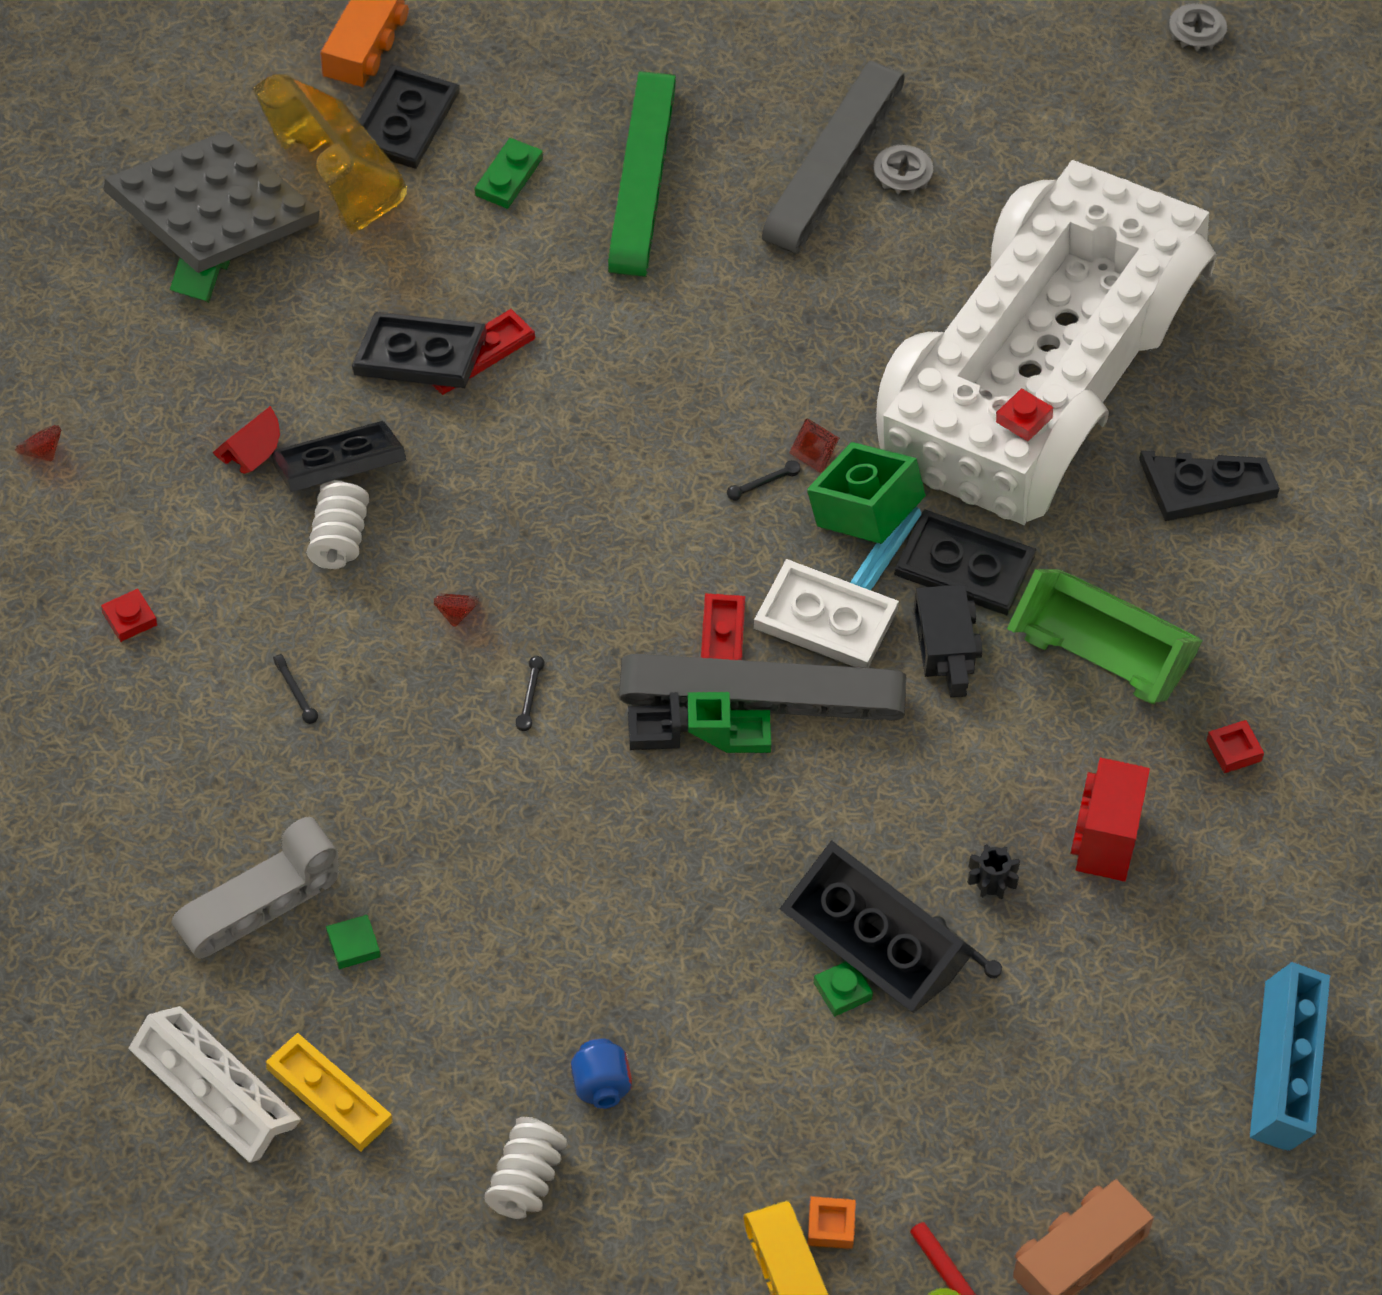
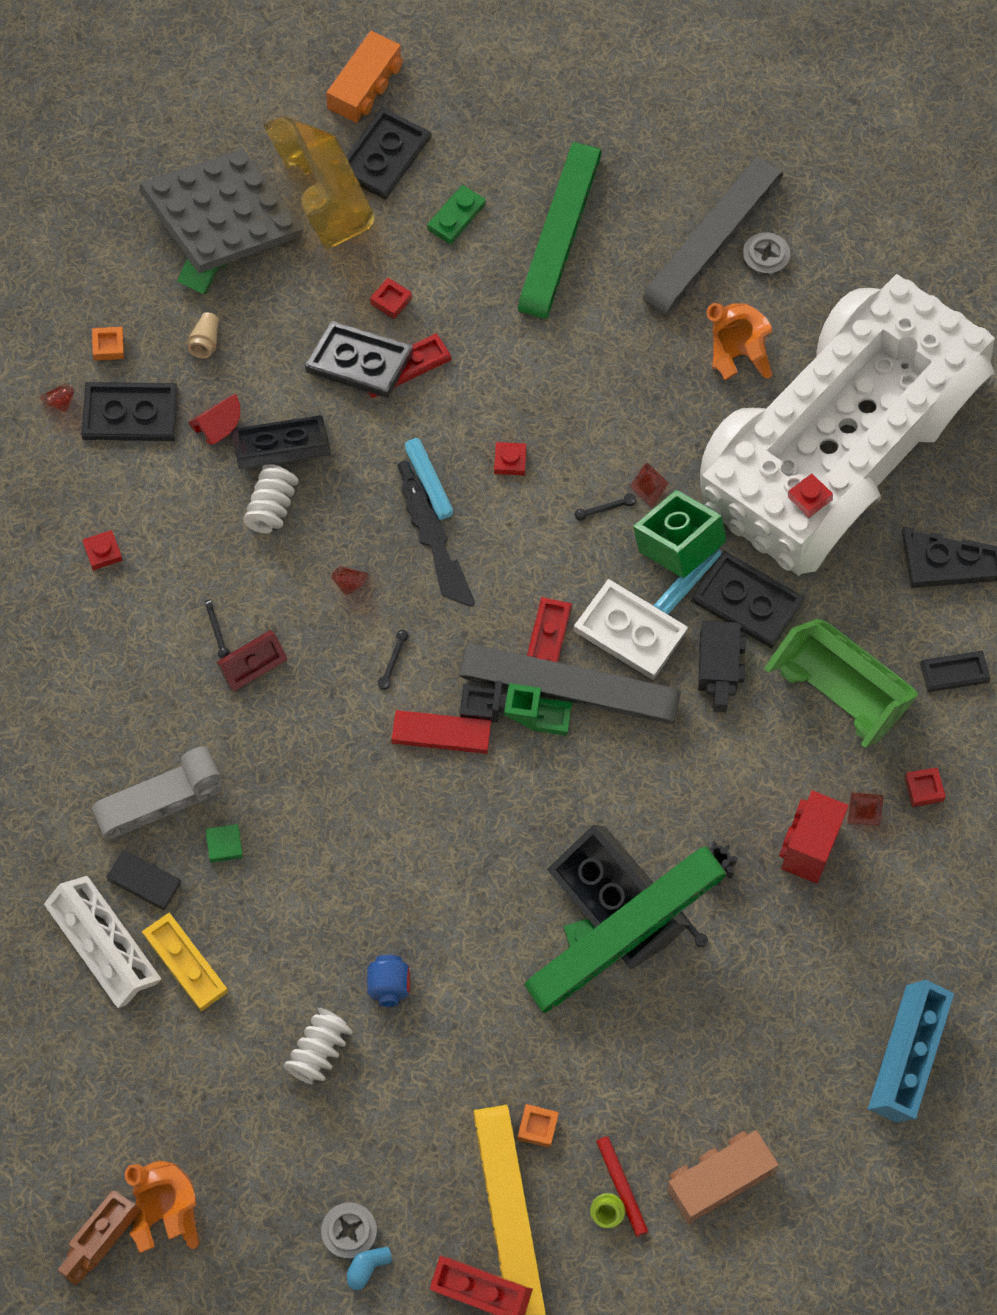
camera: 10 degrees right, 10 degrees up
(93, 373) = (108, 343): none -> orange plate
(135, 449) = (129, 411): none -> black tile
(216, 350) = (204, 336): none -> tan cone
(255, 1000) = (143, 880): none -> black tile
(349, 716) = (252, 660): none -> dark red plate
(445, 276) = (391, 298): none -> red plate
(534, 477) = (429, 478): none -> medium azure axle
(550, 539) = (449, 574): none -> black sword
(609, 769) = (441, 731): none -> red tile
(632, 440) = (510, 458): none -> red plate
(890, 257) = (739, 331): none -> orange piece
(897, 959) = (625, 929): none -> green beam
(1167, 782) = (865, 809): none -> clear red slope
(1241, 609) = (955, 671): none -> black tile

